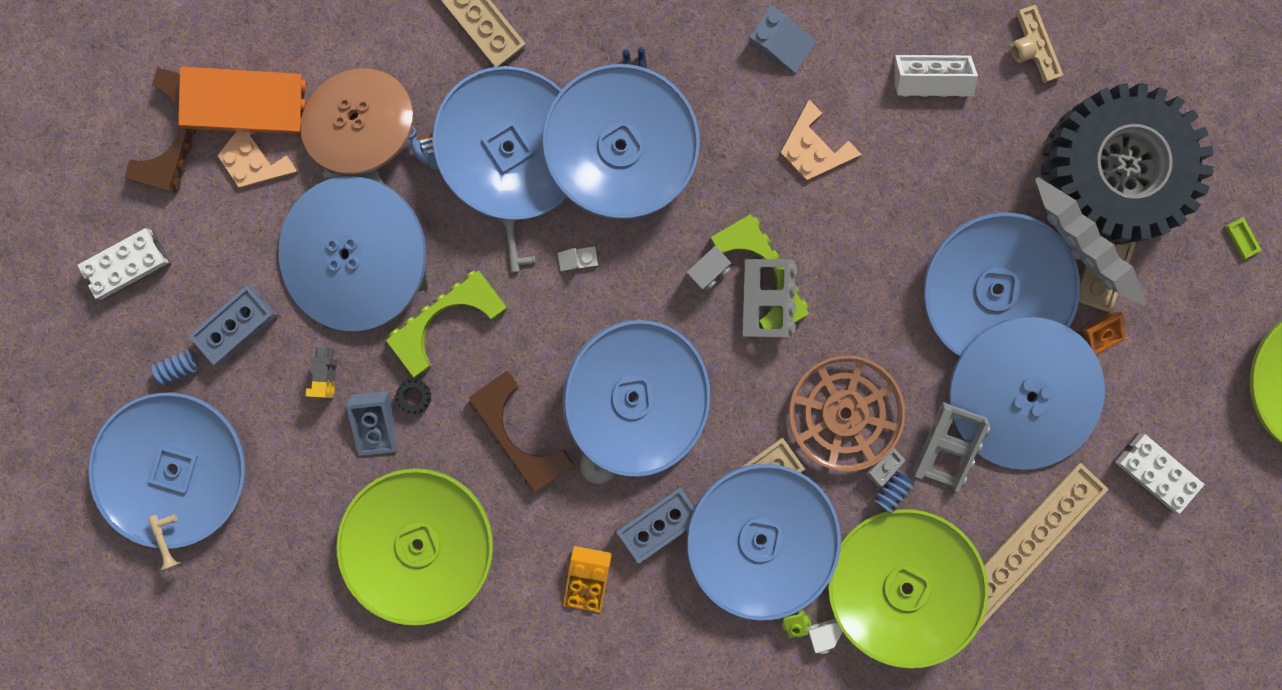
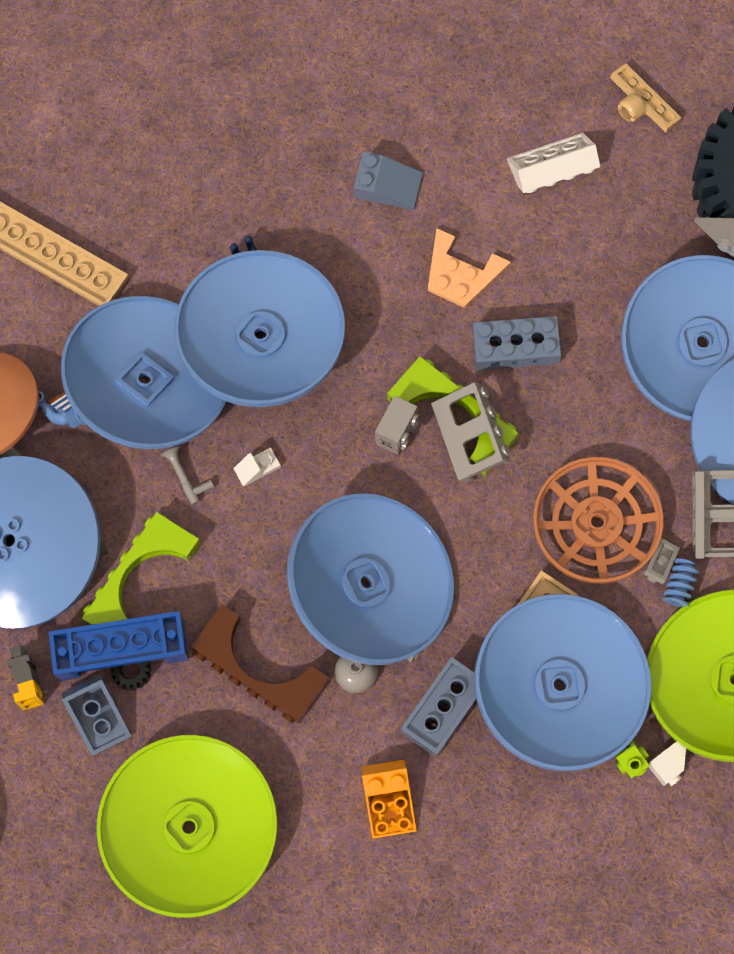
camera: 15 degrees left, 15 degrees down
(408, 375) = (118, 644): none -> blue plate
(847, 222) = (517, 330): none -> sand blue brick

